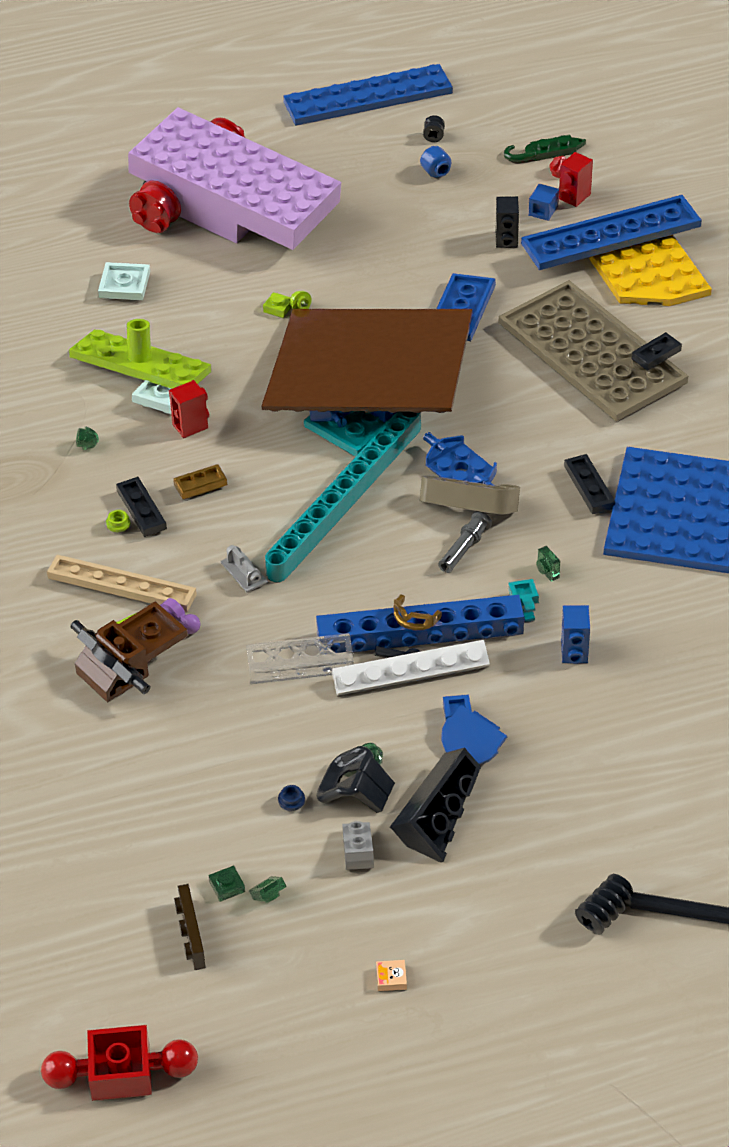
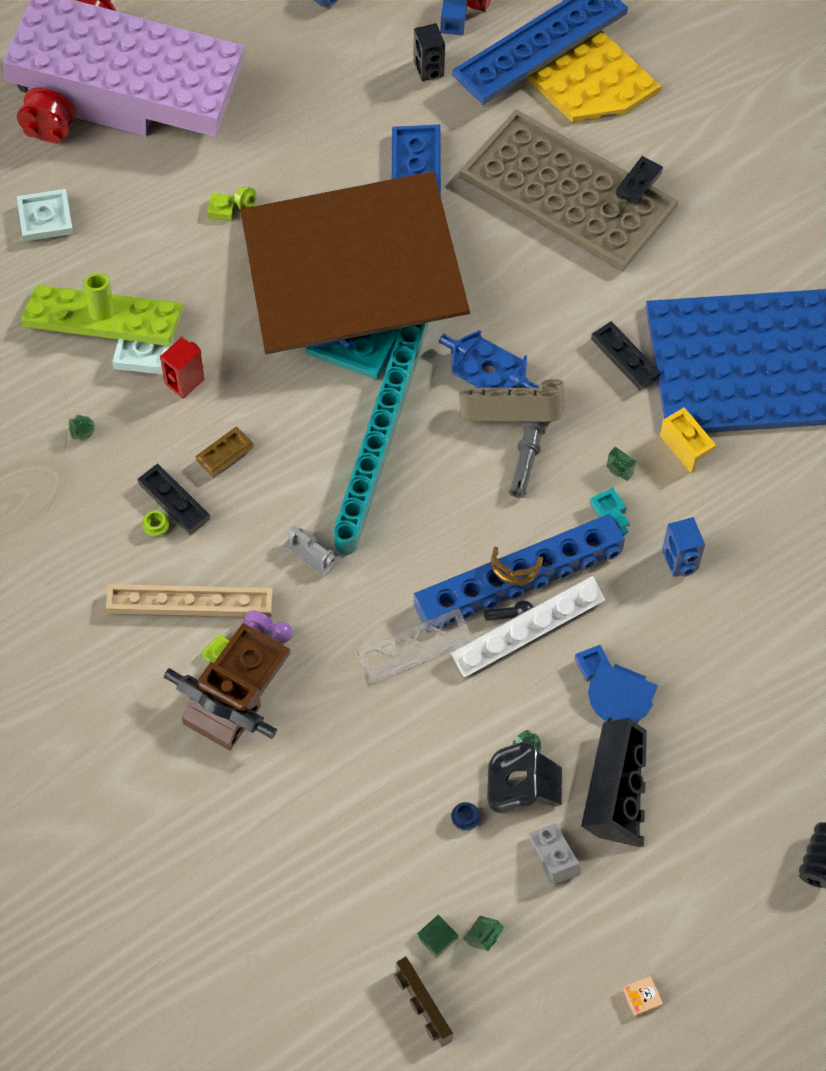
camera: 20 degrees left, 15 degrees up
(616, 554) = (686, 438): none -> yellow panel

